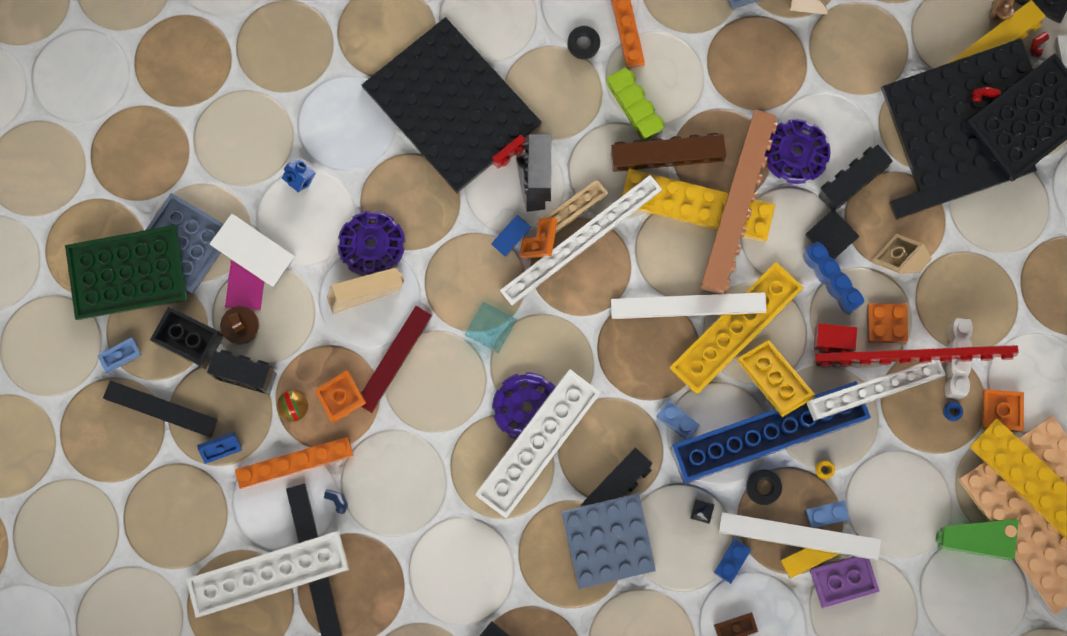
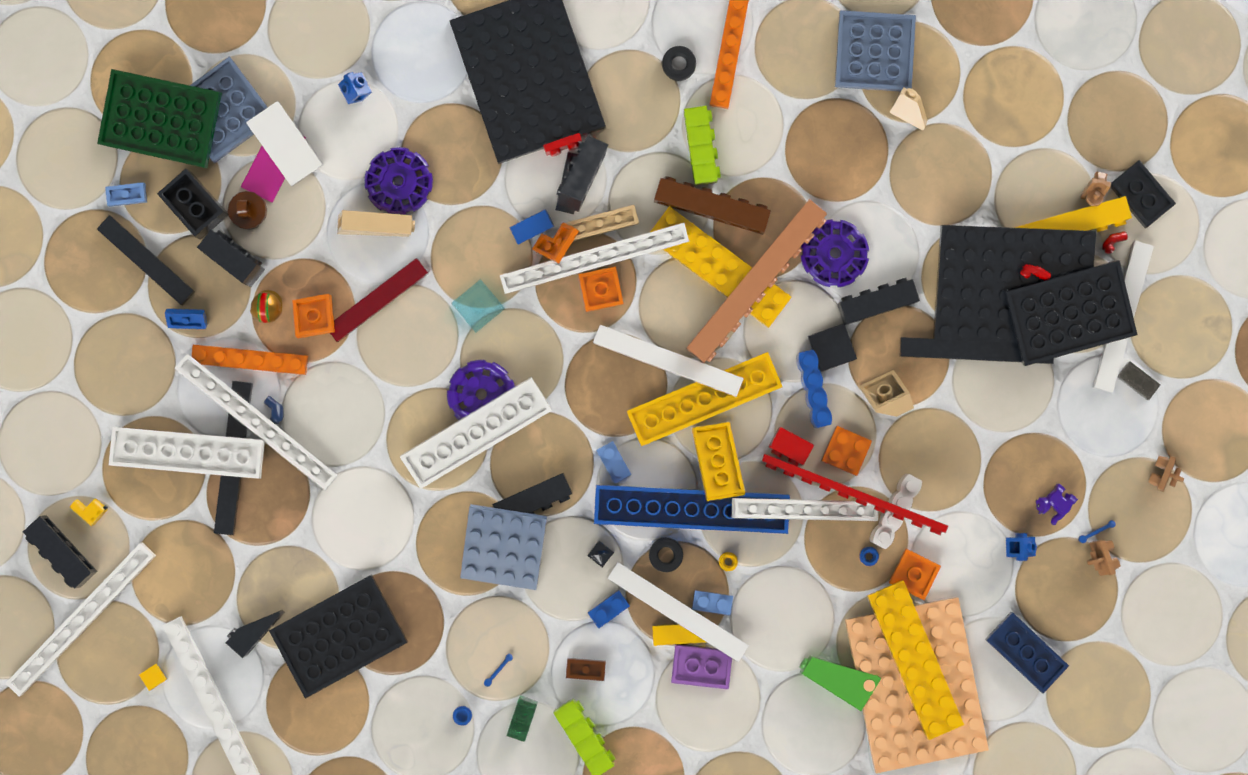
camera: 20 degrees right, 10 degrees up
(324, 518) = (256, 422): none -> white plate
(598, 266) = (601, 289): none -> orange plate

